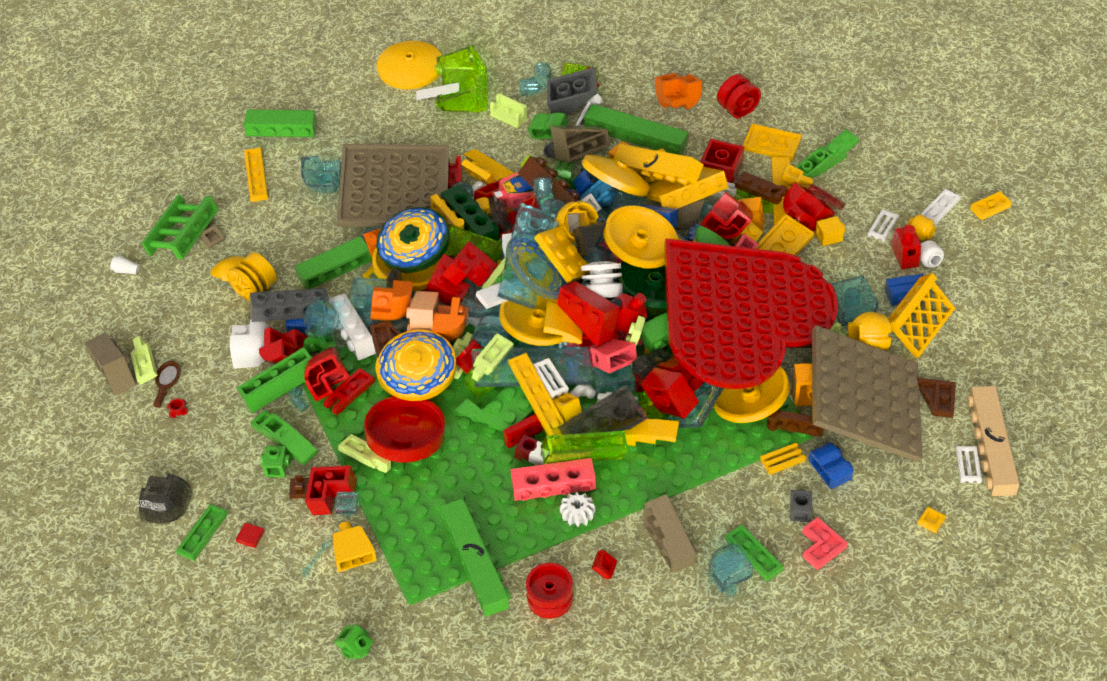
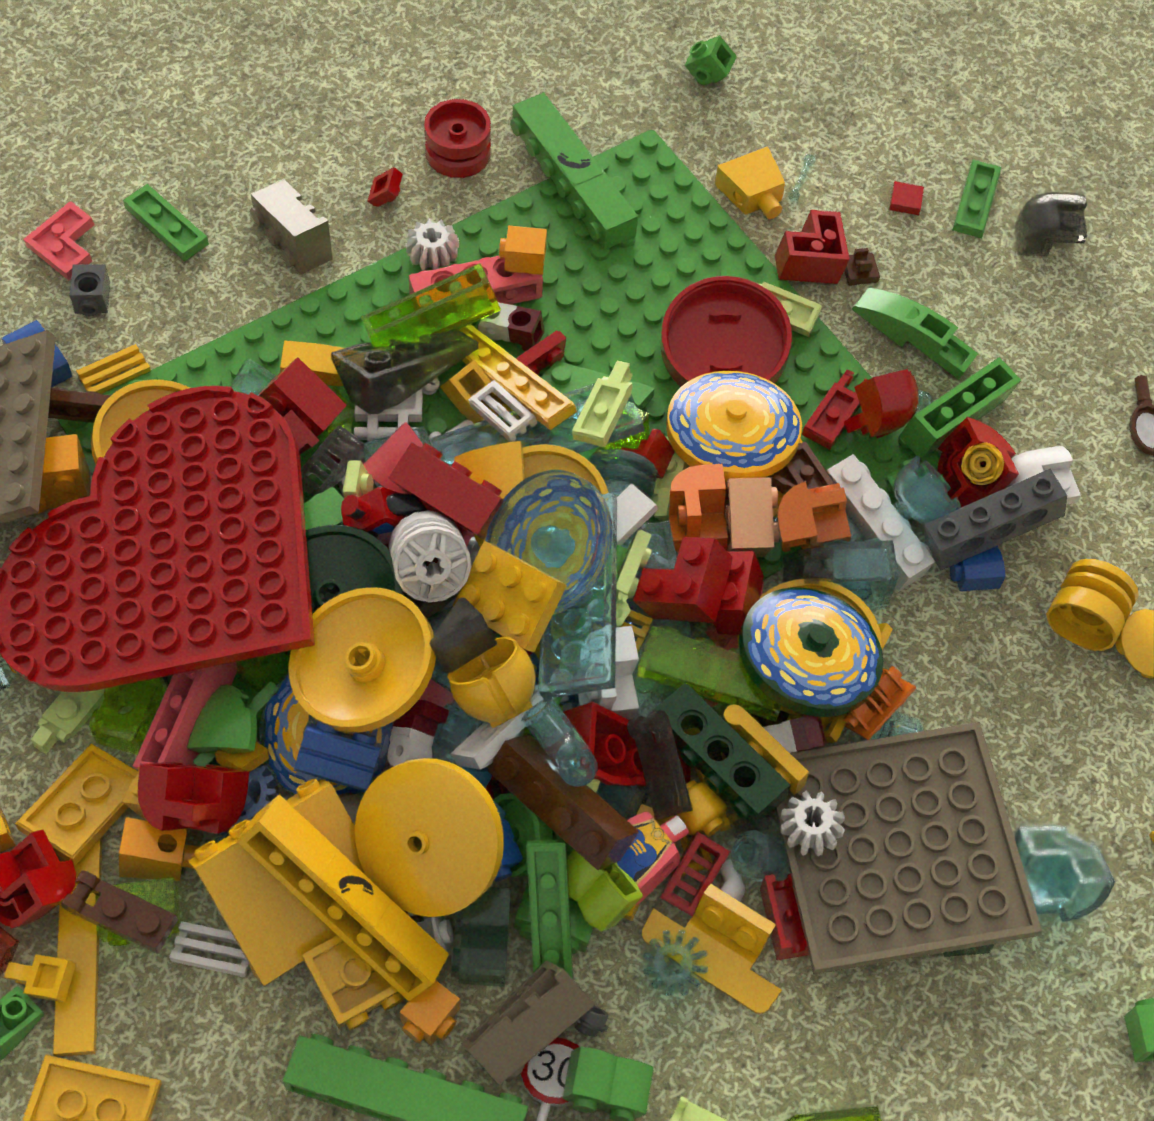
camera: 165 degrees right, 10 degrees up
(177, 403) = (1108, 368): red plate -> none
(275, 461) = (913, 283): bright green brick -> none
(282, 332) = (972, 462): none -> yellow plate
(333, 263) = (960, 667): bright green brick -> none
(346, 503) = (774, 232): clear light blue tile -> none
(432, 184) = (808, 836): none -> white gear
(508, 160) = (662, 962): none -> clear light blue gear
(519, 470) = (524, 249): none -> light orange brick
(724, 157) = (205, 1003): red brick -> none
(728, 568) = (203, 176): clear light blue brick -> none

